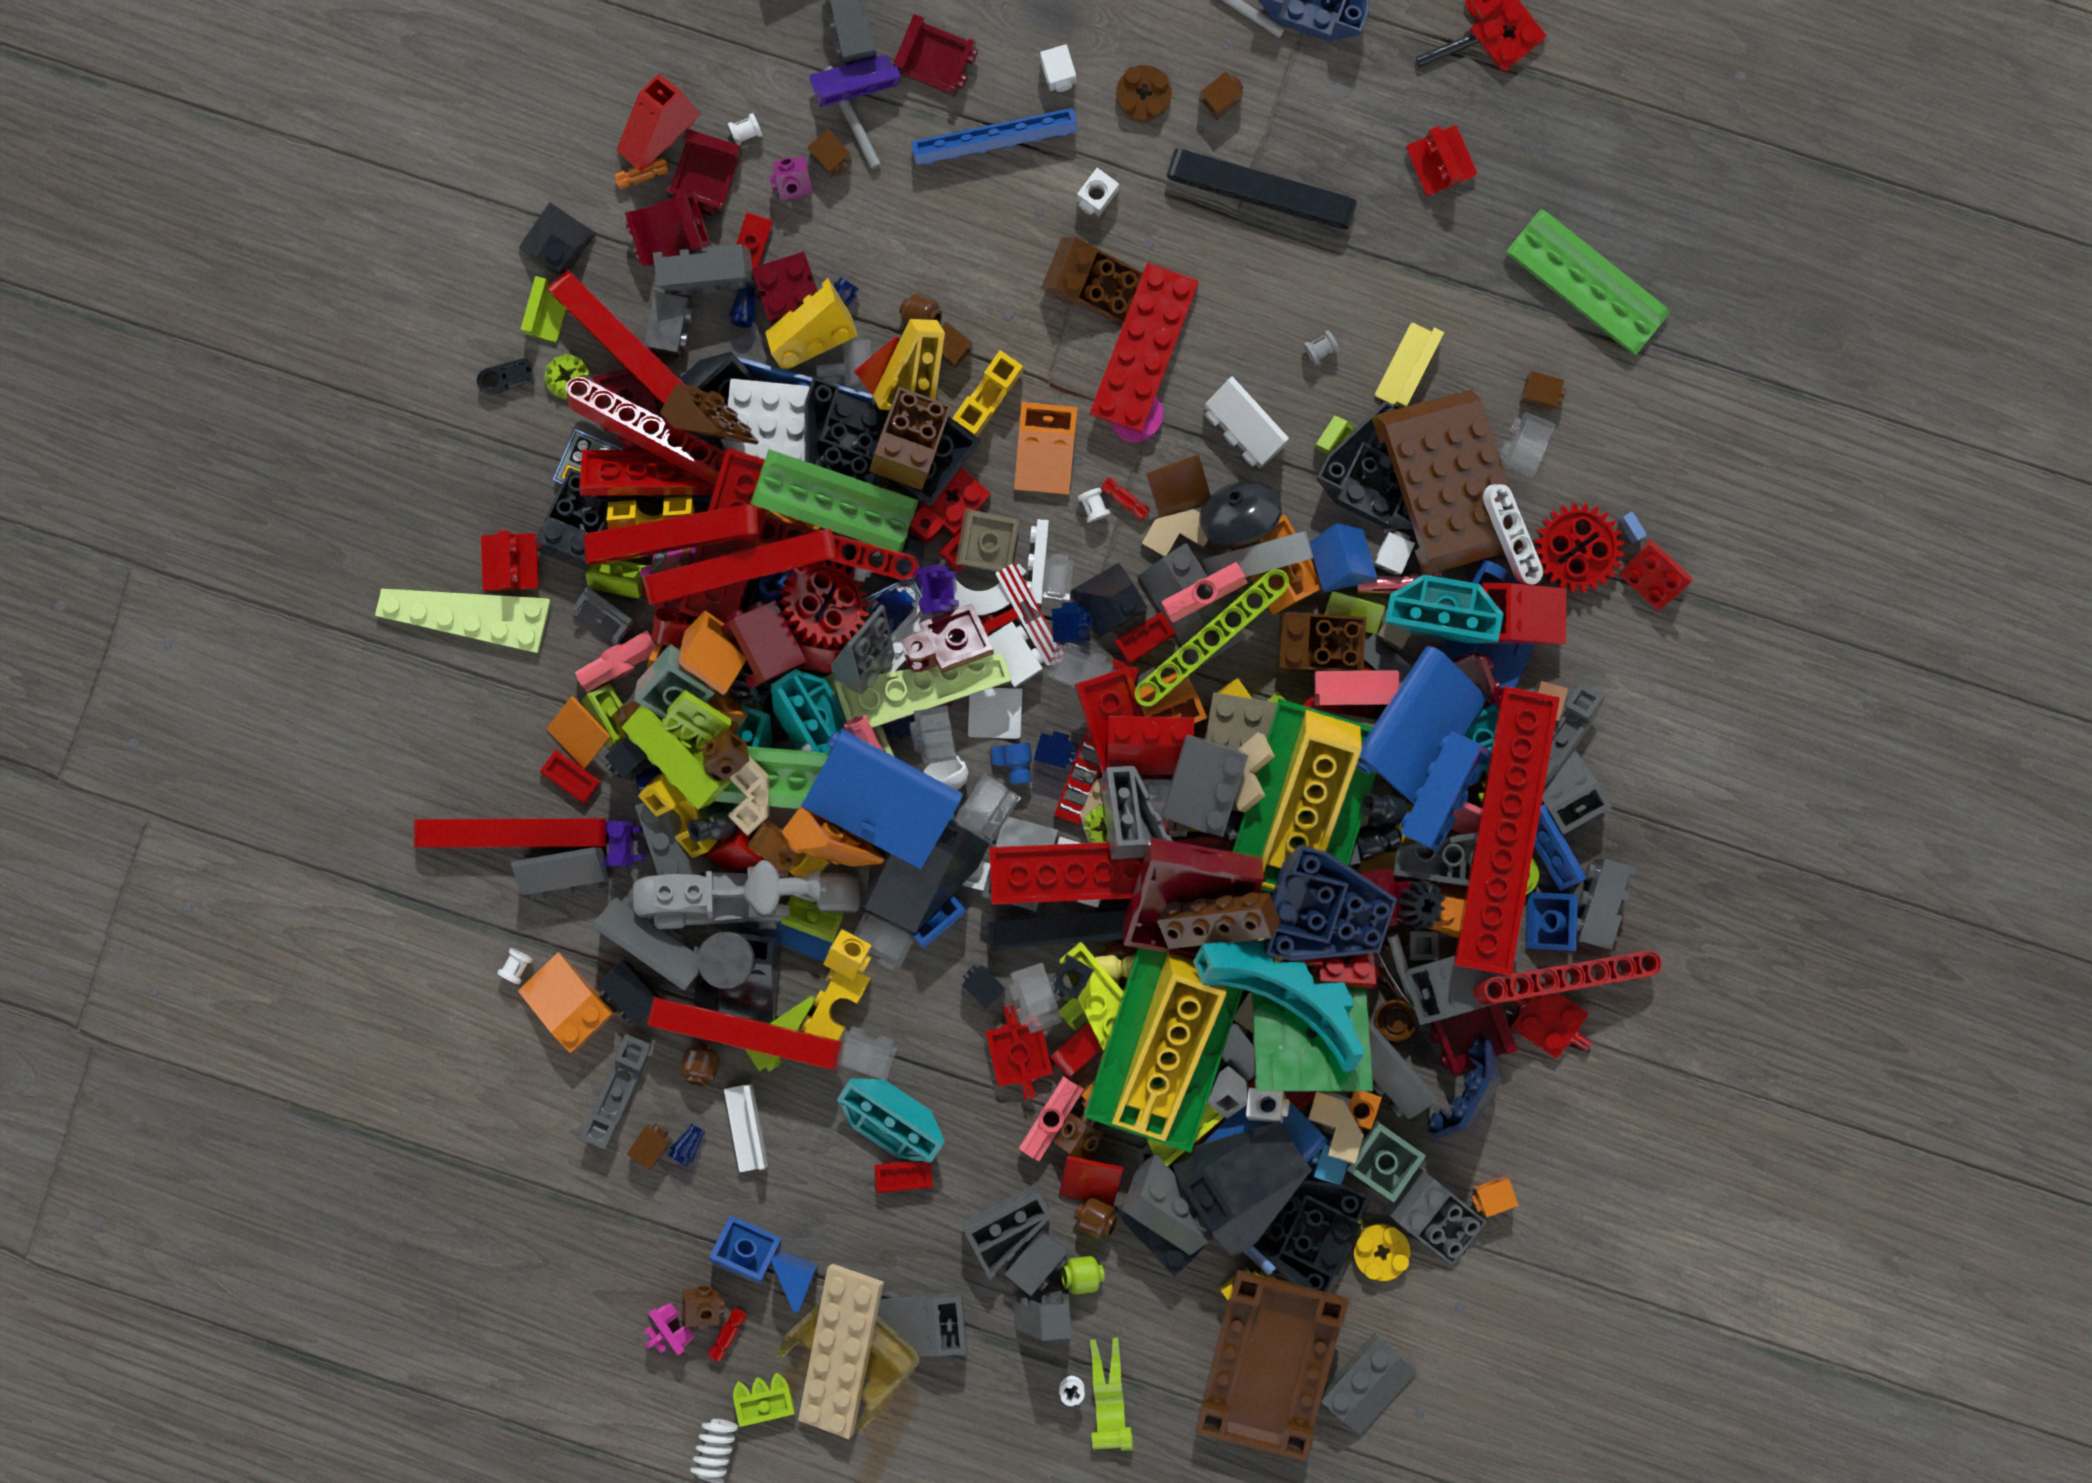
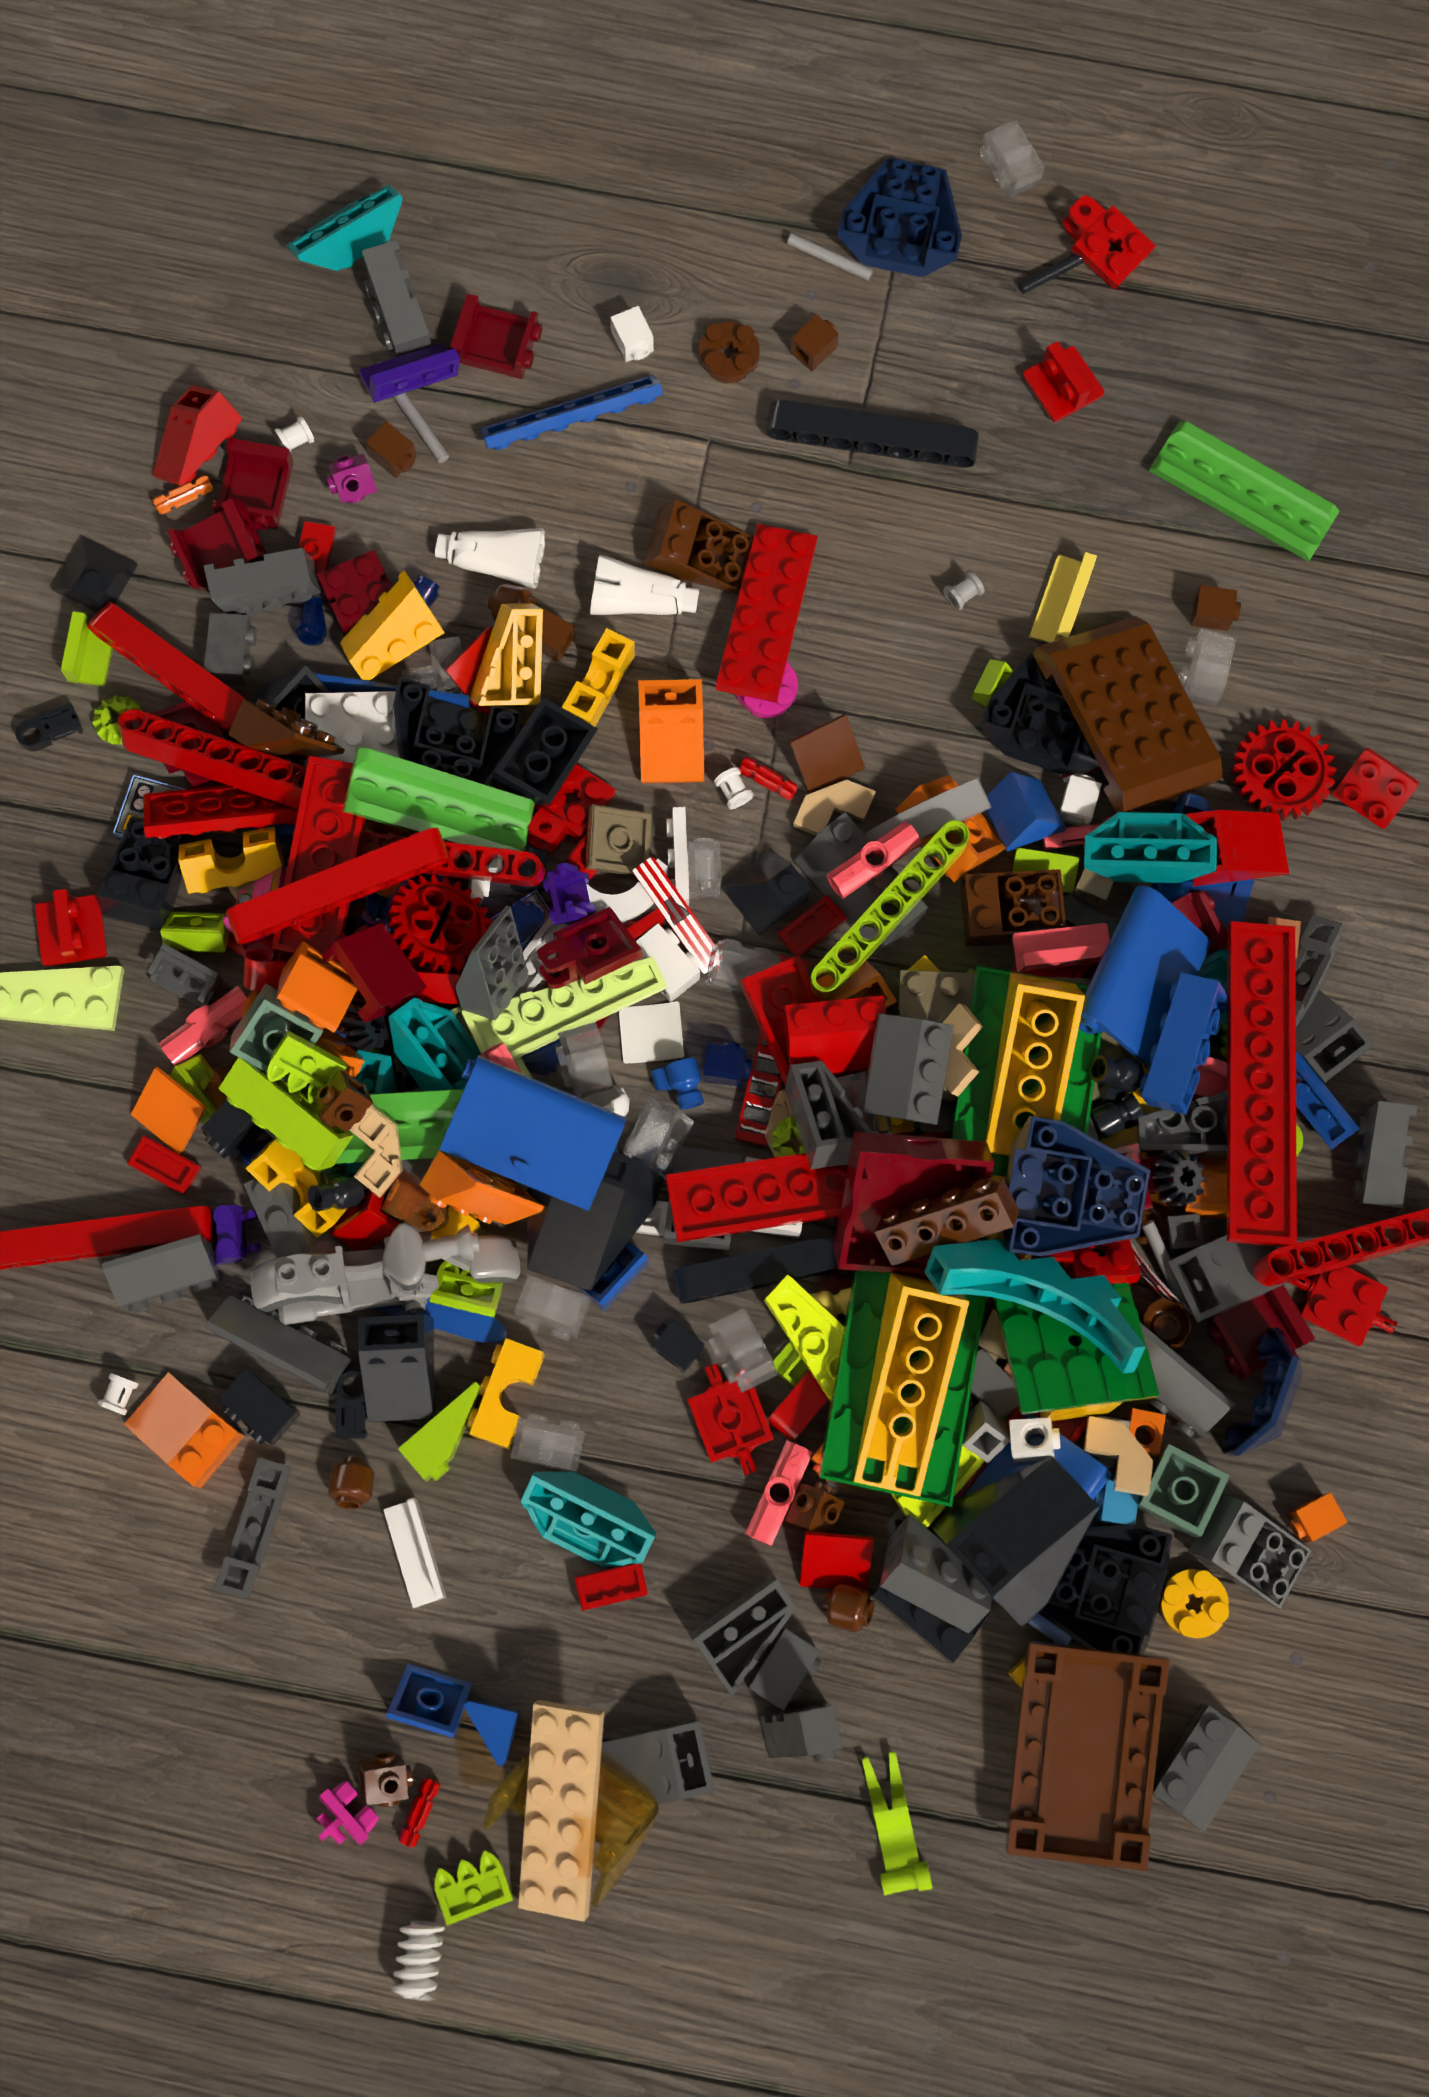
camera: 15 degrees left, 10 degrees down
(650, 1145) = (301, 1589): reddish brown brick -> none
(671, 534) = (254, 861): red beam -> none
(687, 1145) = (345, 1585): clear blue cone -> none
(726, 960) = (369, 1348): flat silver tile -> none
(745, 1033) = (401, 1433): red beam -> none
(848, 955) = (514, 1326): yellow brick -> none
(910, 438) = (516, 730): reddish brown slope -> none
(912, 263) = (503, 554): none -> white piece
(1032, 313) = (632, 590): none -> white piece
(1069, 1382) = (852, 1834): white bush -> none
(1071, 623) = (726, 918): clear blue brick -> none
(1082, 1275) = (841, 1678): lime head -> none
(1083, 974) = (792, 1304): black brick -> none
(1100, 181) = (692, 445): white brick -> none
(1240, 513) = (901, 773): black dish -> none
(1245, 423) = (892, 677): white slope -> none
(1517, 531) = (1205, 762): white beam -> none
(1552, 921) = (1328, 1187): blue slope -> none
(1632, 527) = (1339, 740): medium blue tile -> none

